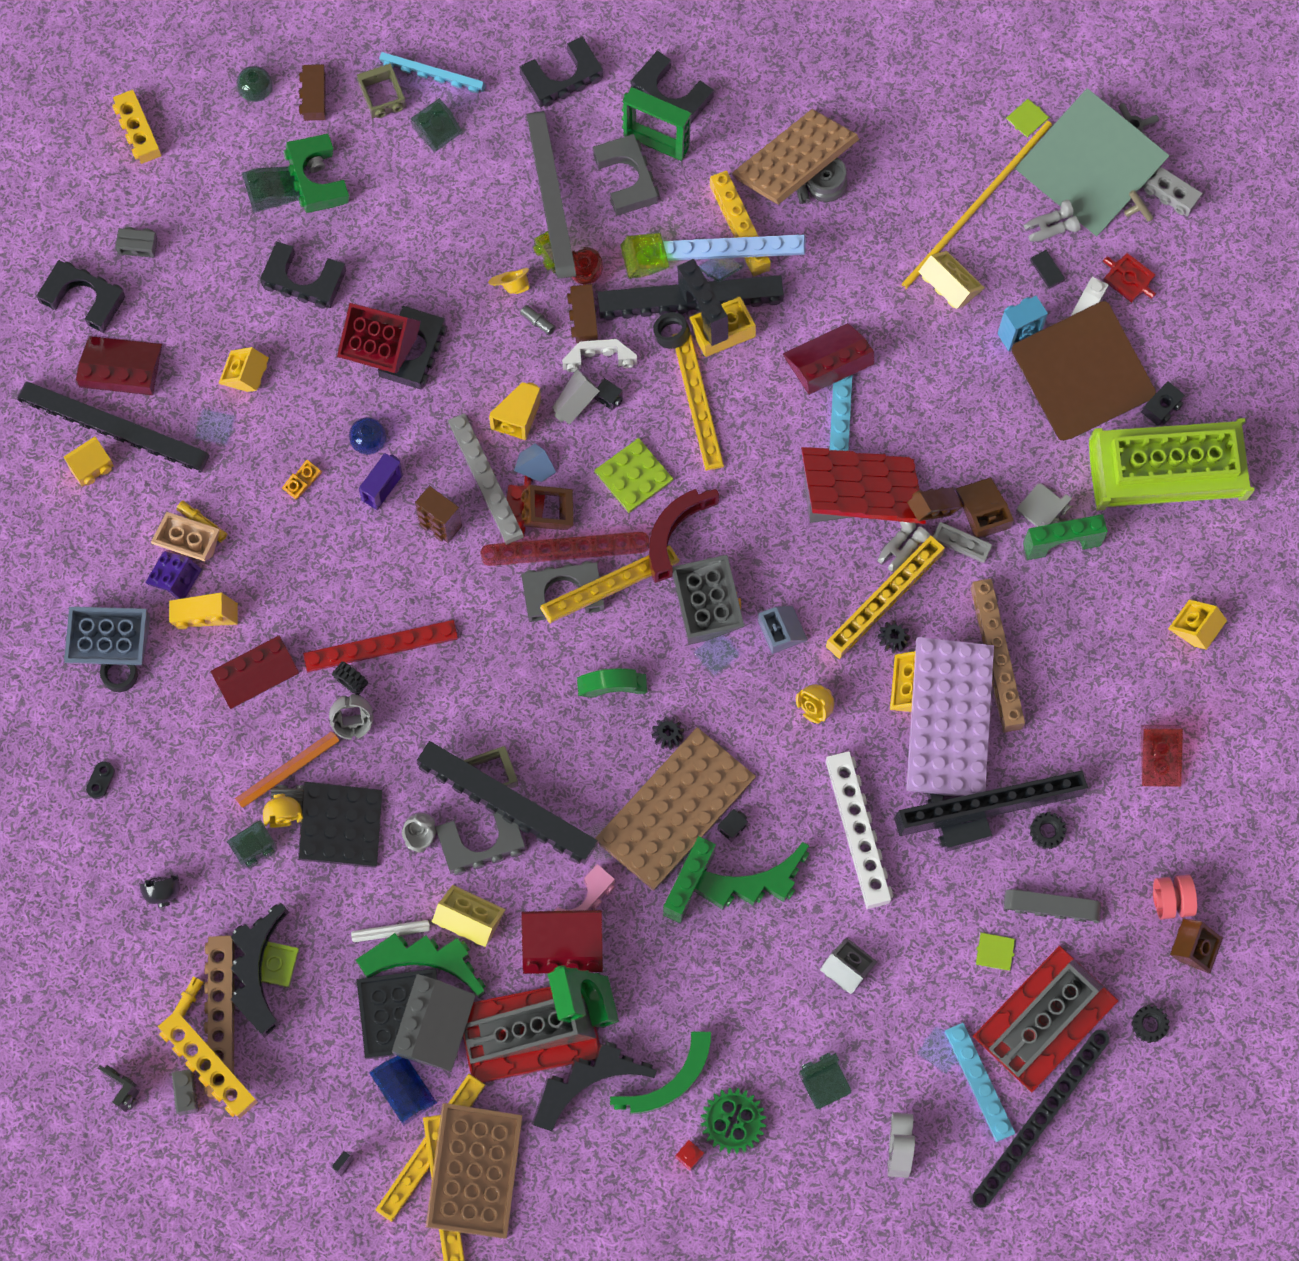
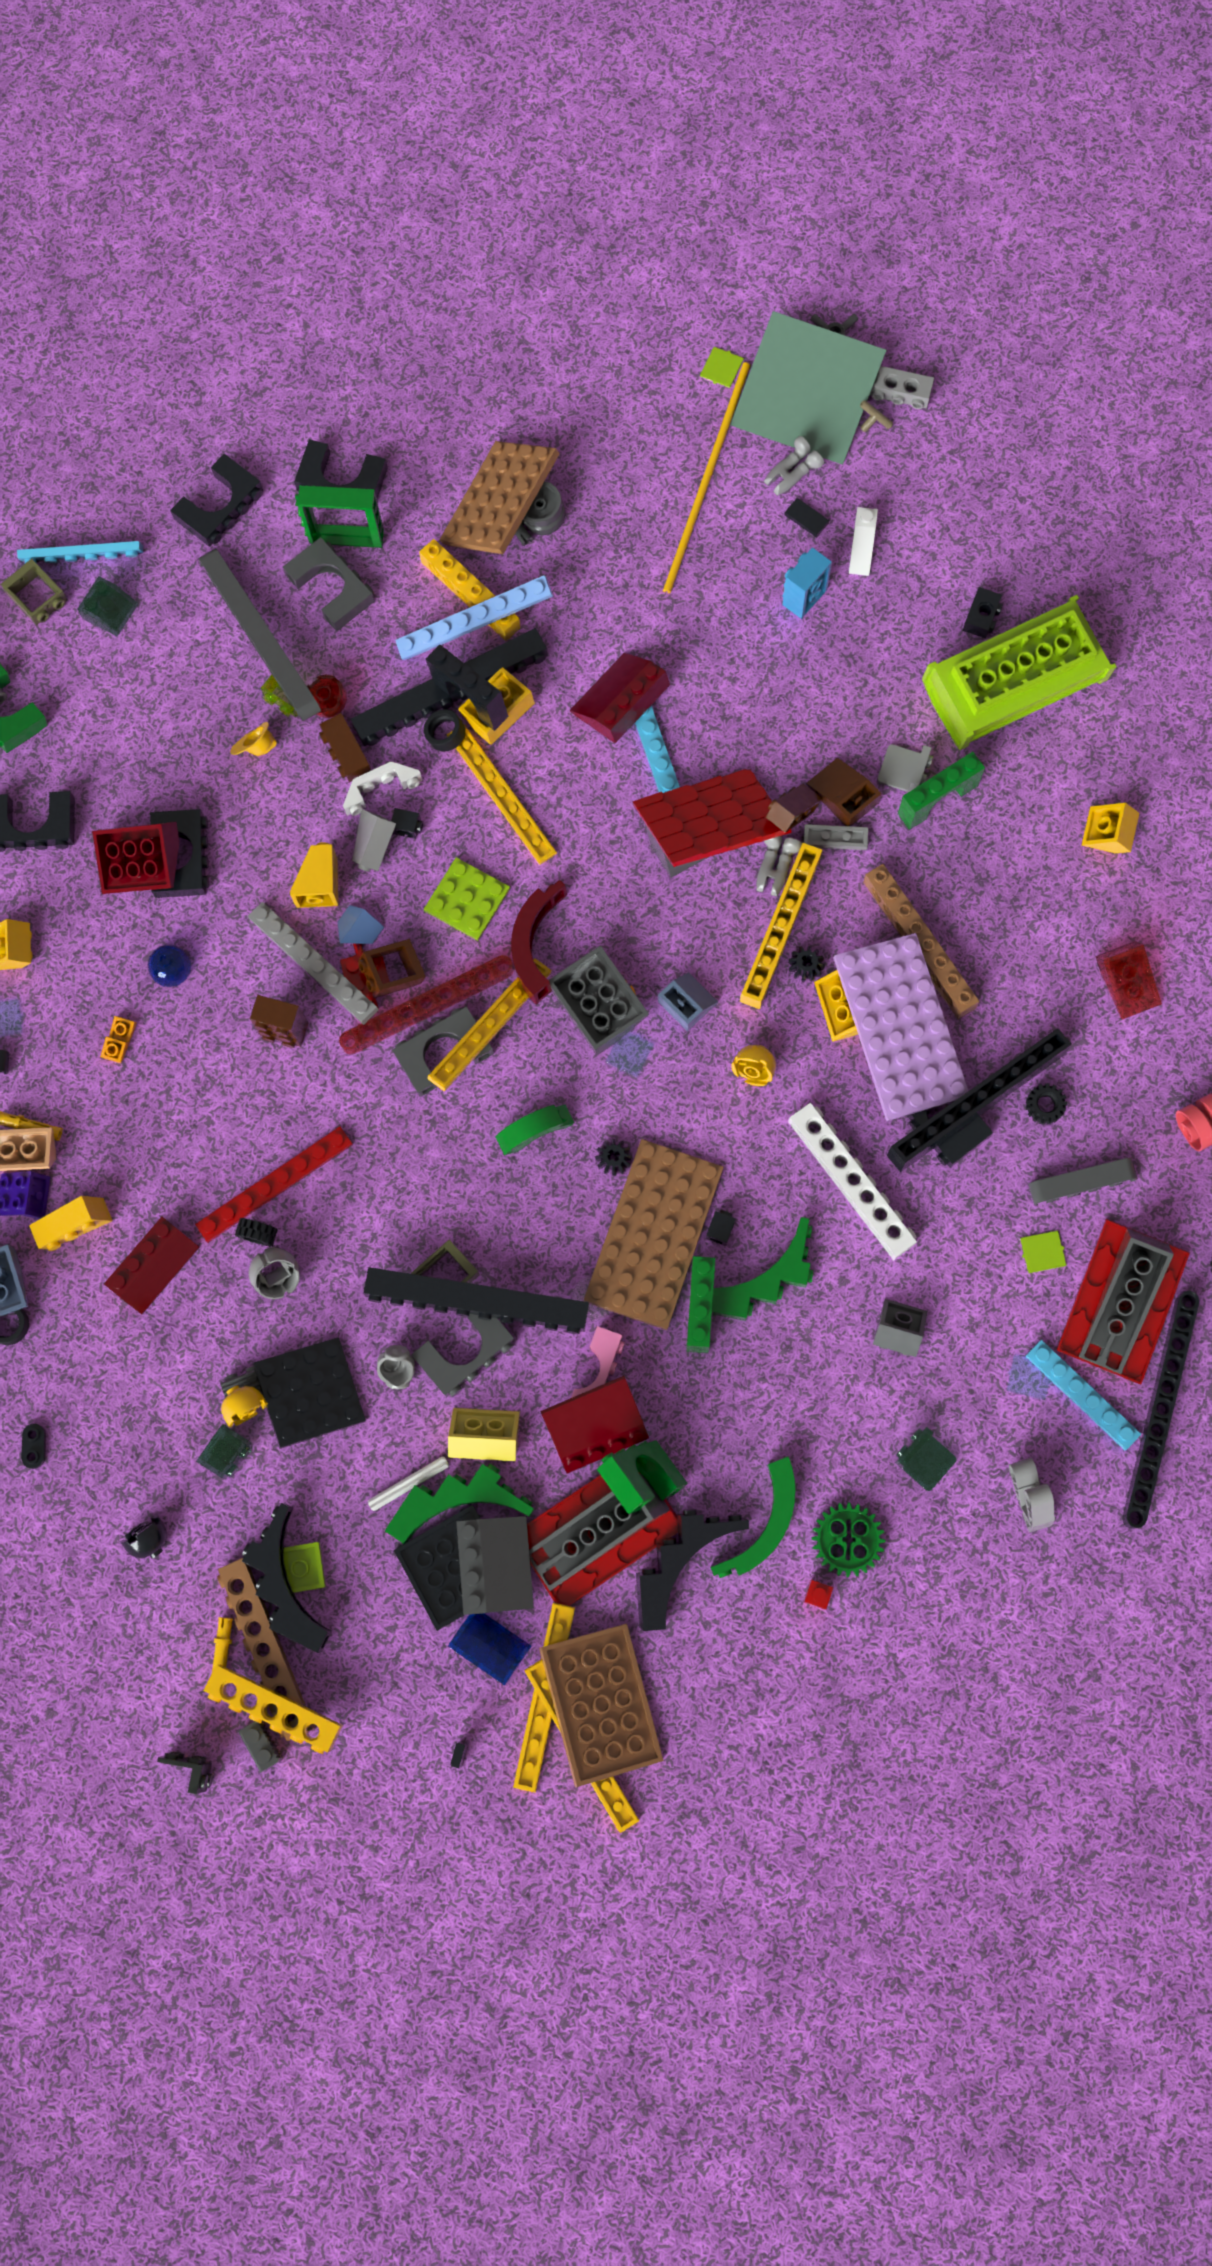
camera: 15 degrees left, 5 degrees up
(287, 769) = (228, 1356): orange tile -> none
(381, 481) = (203, 1008): dark purple window -> none
(537, 320) = (299, 773): dark grey pin -> none
(644, 255) = (383, 661): clear neon green slope -> none
(720, 268) = (469, 645): clear light blue piece -> none
(950, 279) = (712, 566): light yellow slope -> none
(1083, 371) = (887, 609): reddish brown piece -> none
(1129, 277) = (894, 494): red plate -> none

